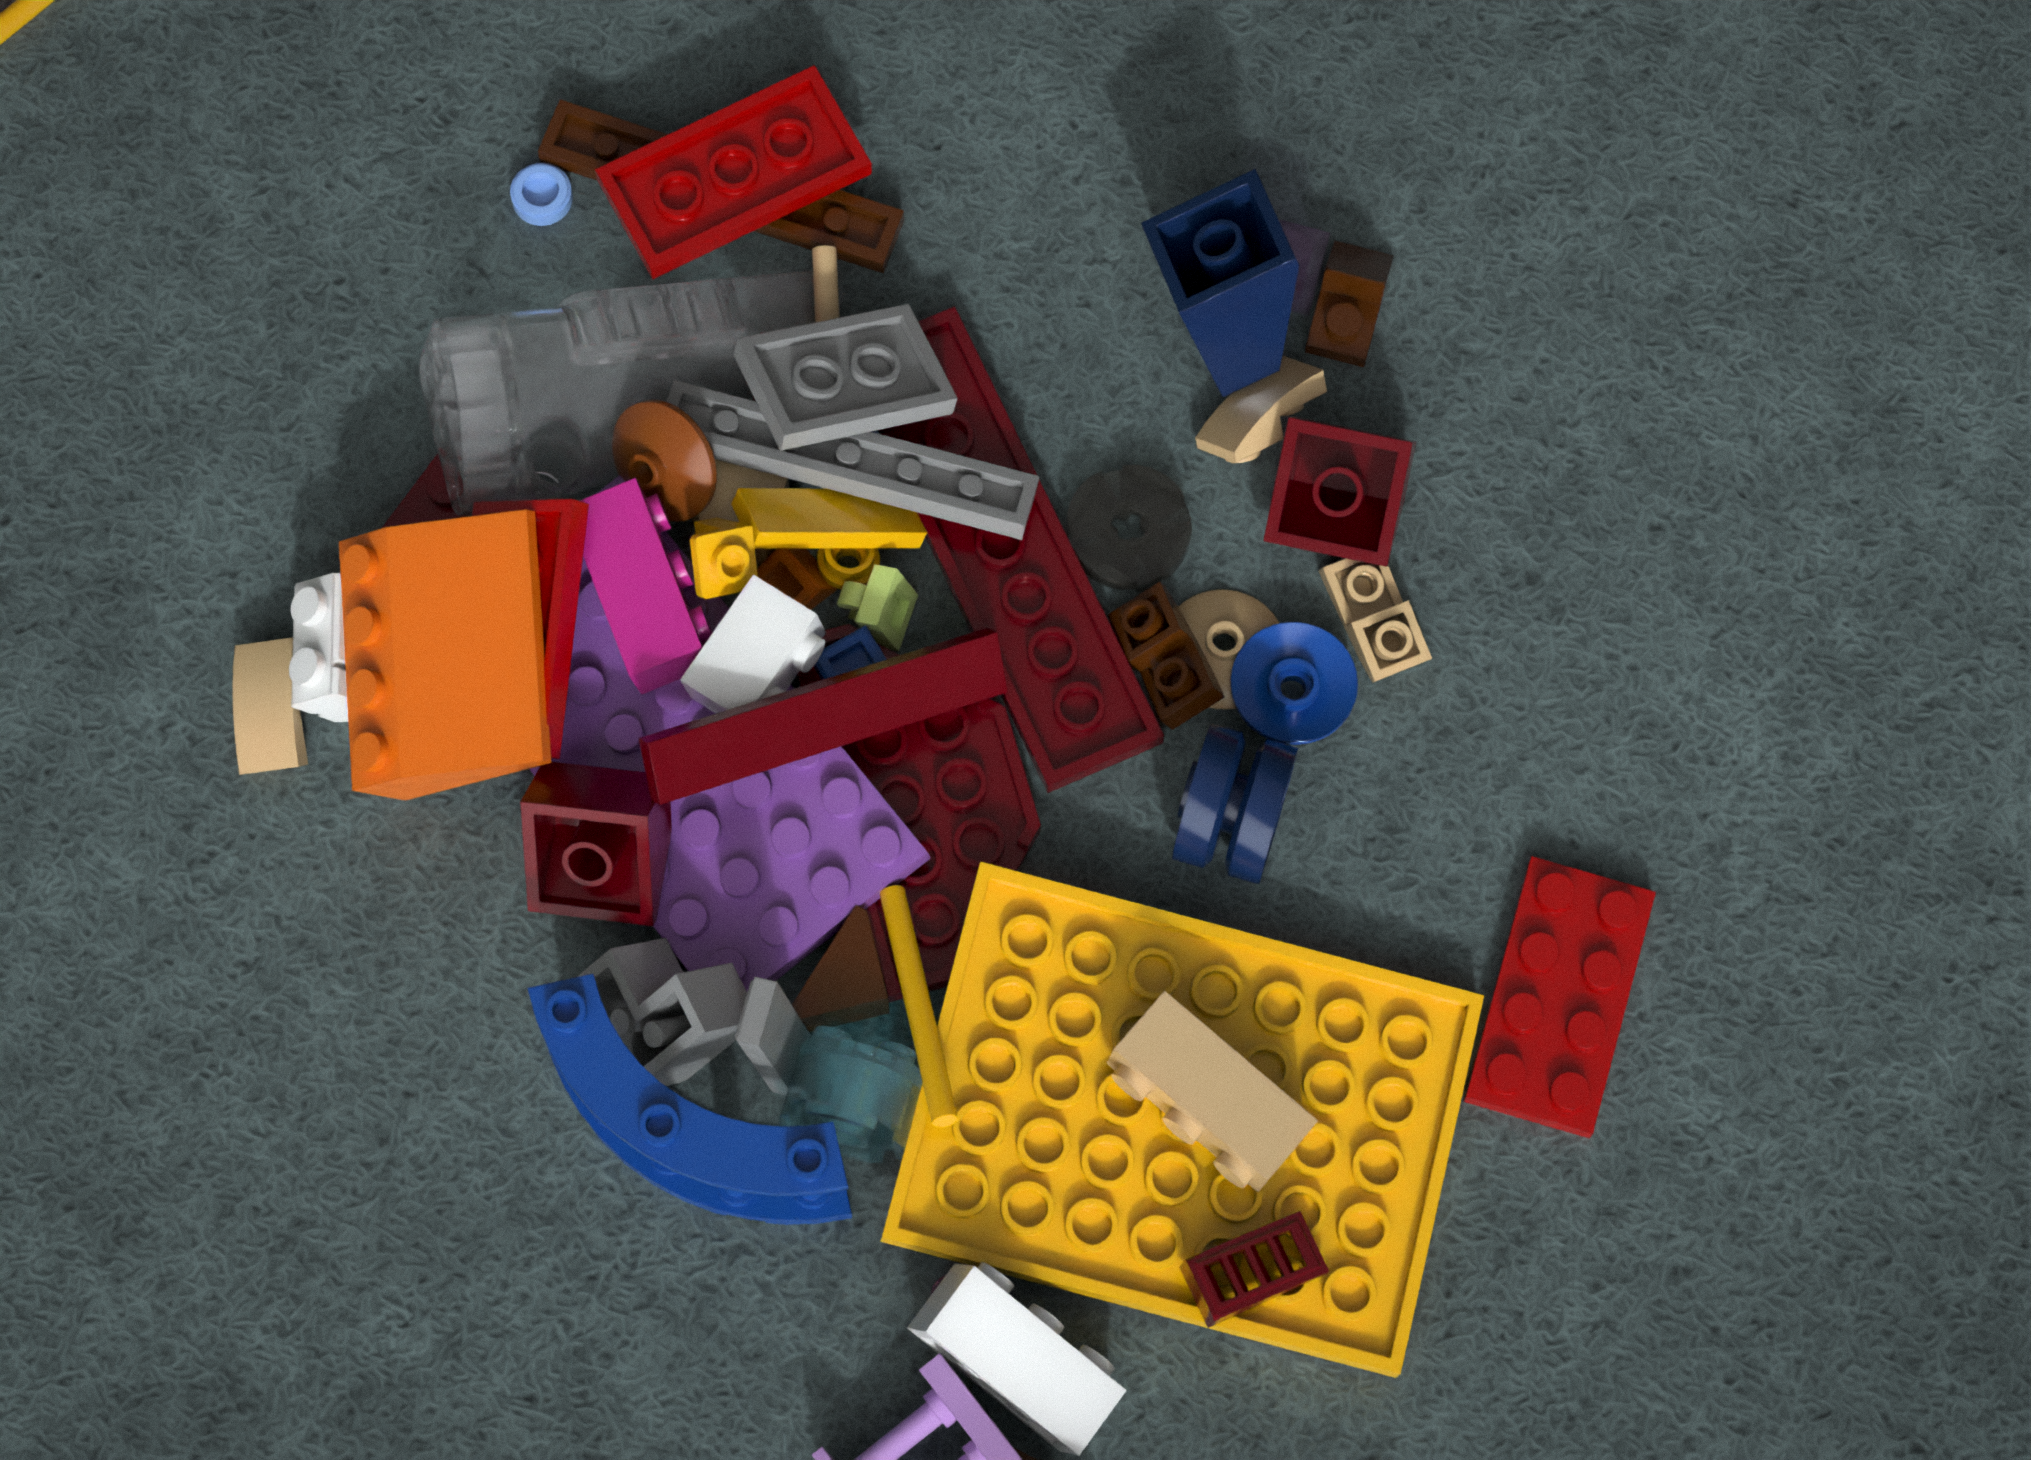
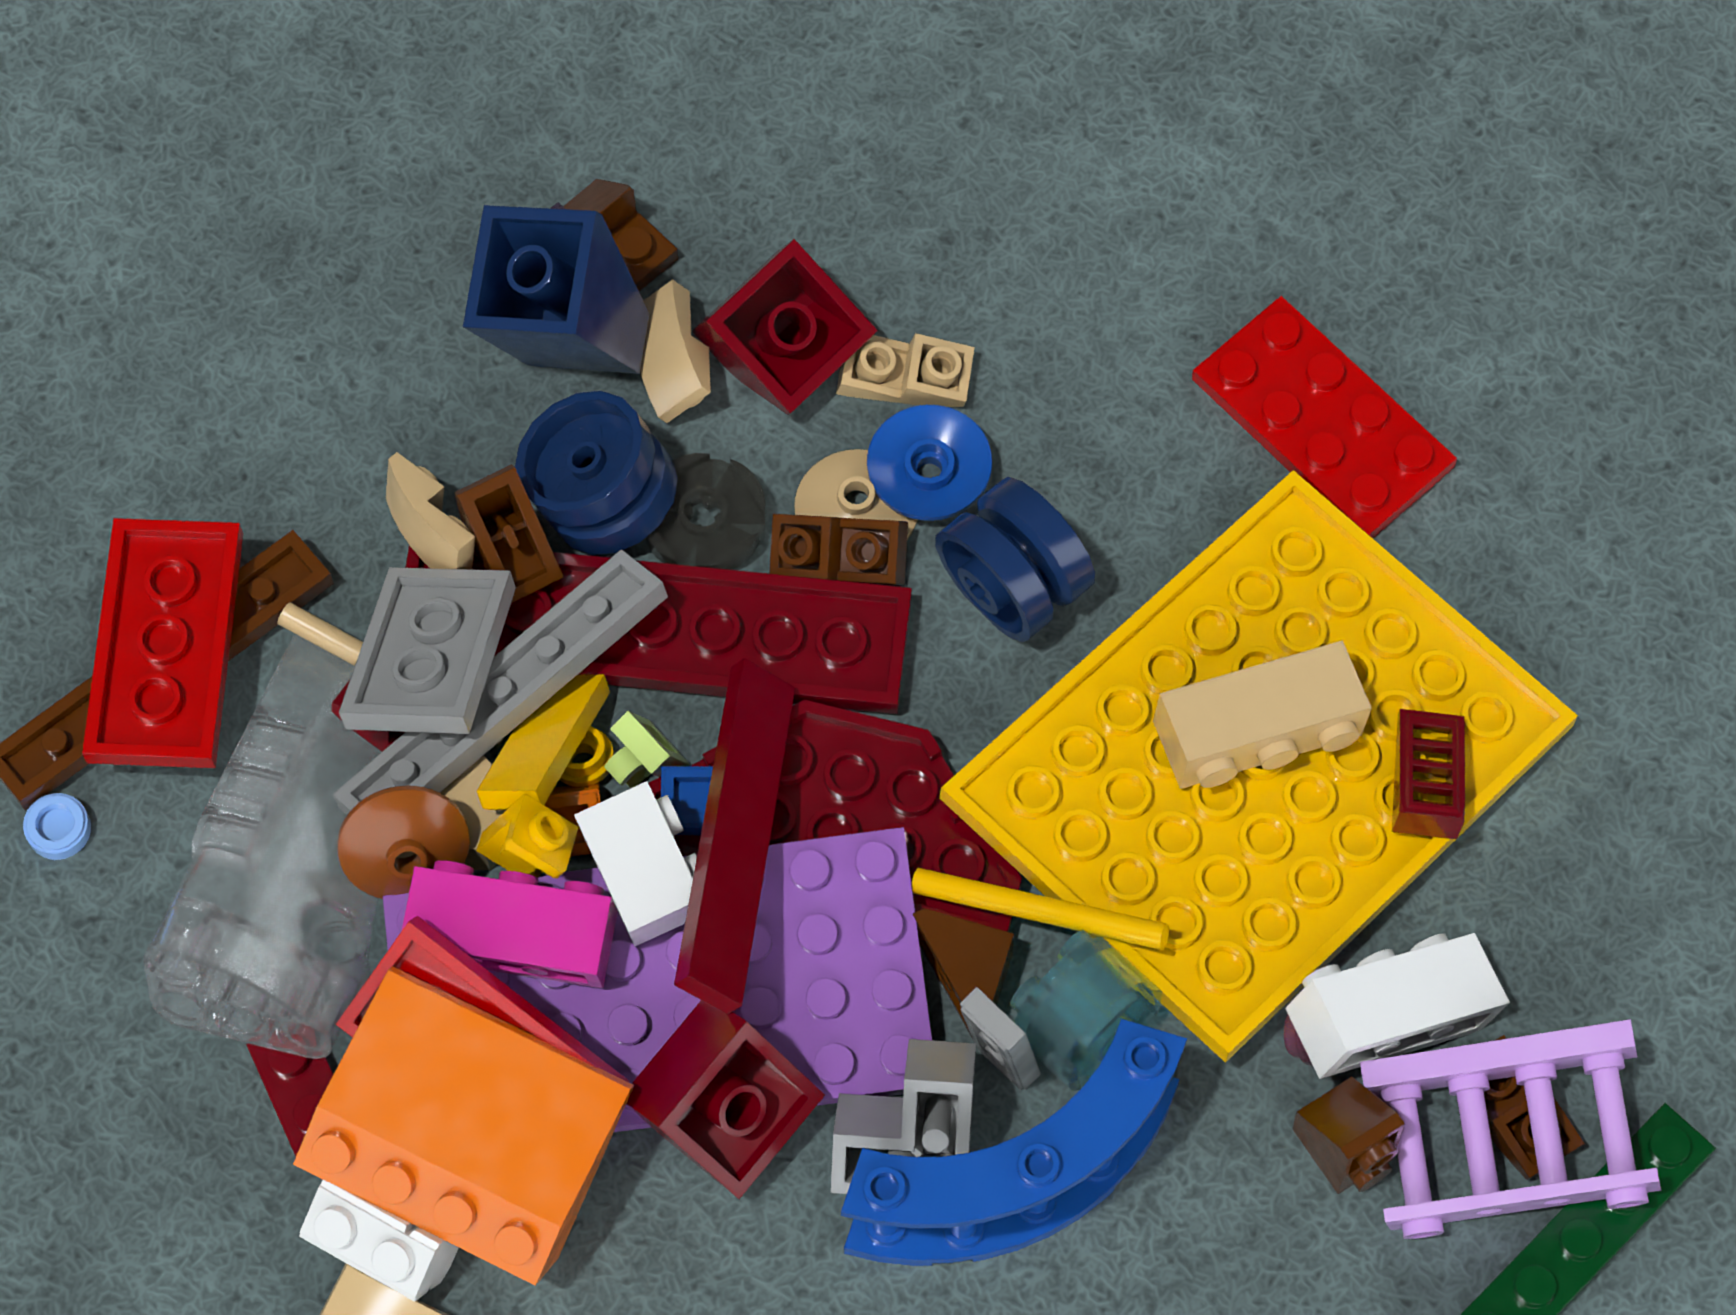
camera: 55 degrees left, 5 degrees down
(875, 1382) = (1350, 1135): none -> reddish brown slope
(970, 307) = (416, 507): none -> tan slope
(995, 377) = (508, 531): none -> reddish brown slope
(1098, 415) = (596, 472): none -> dark blue wheel

